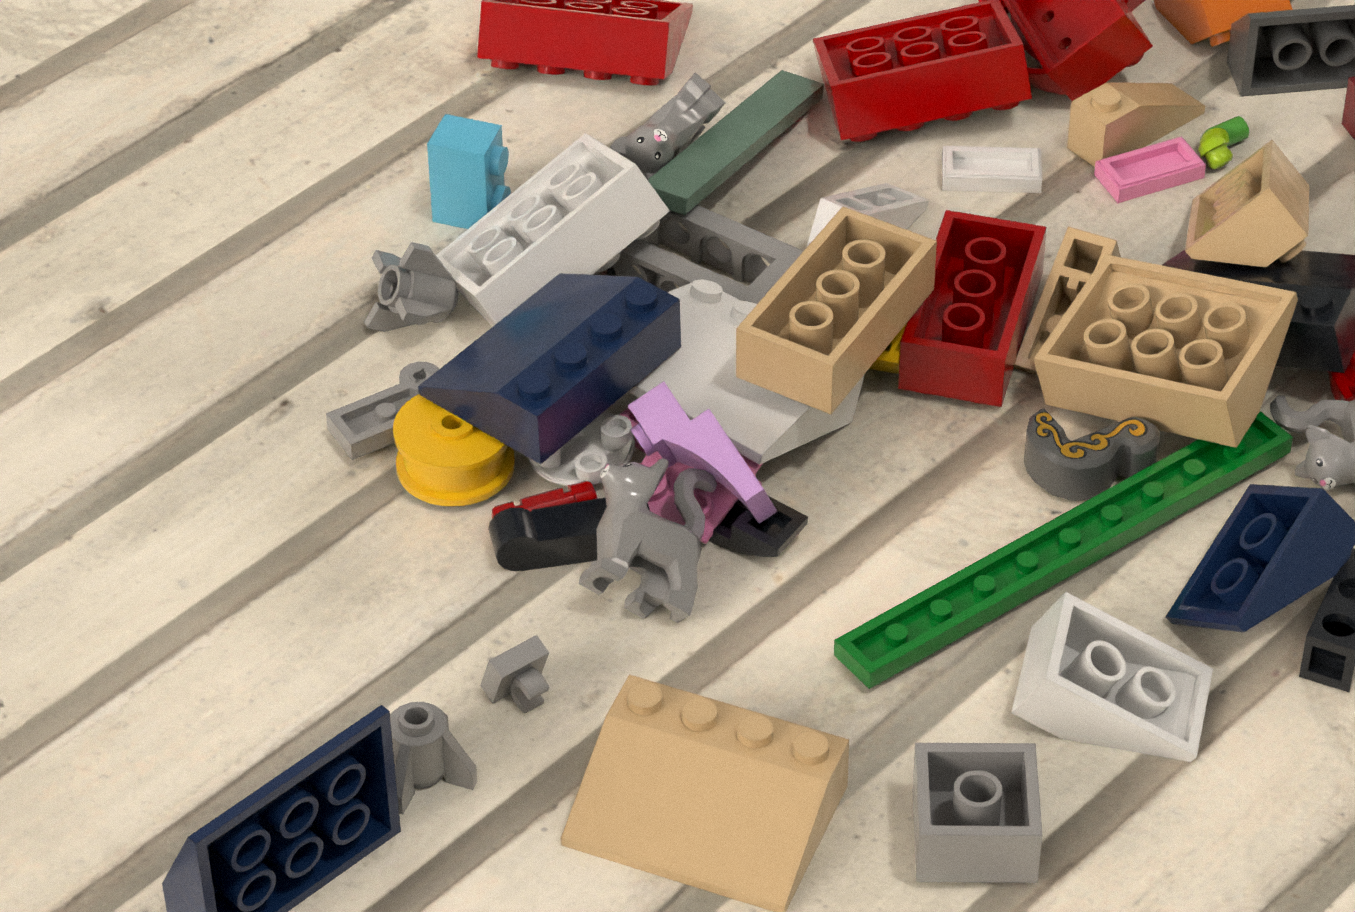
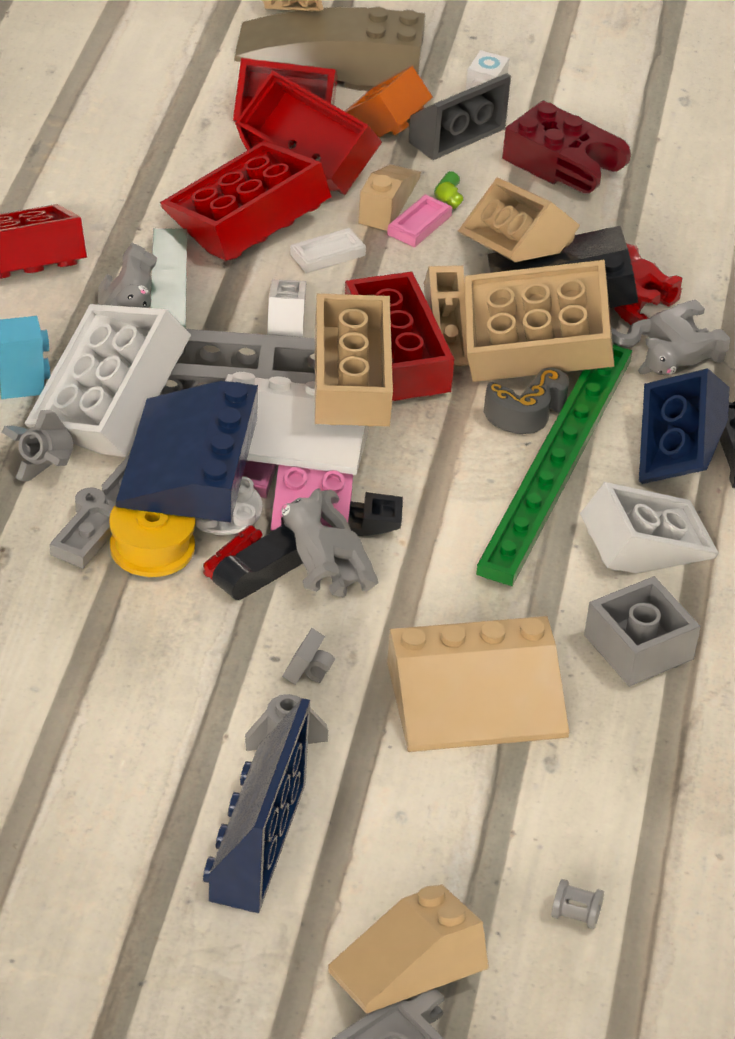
camera: 35 degrees left, 0 degrees up
(698, 444) = (297, 473): lavender slope -> none

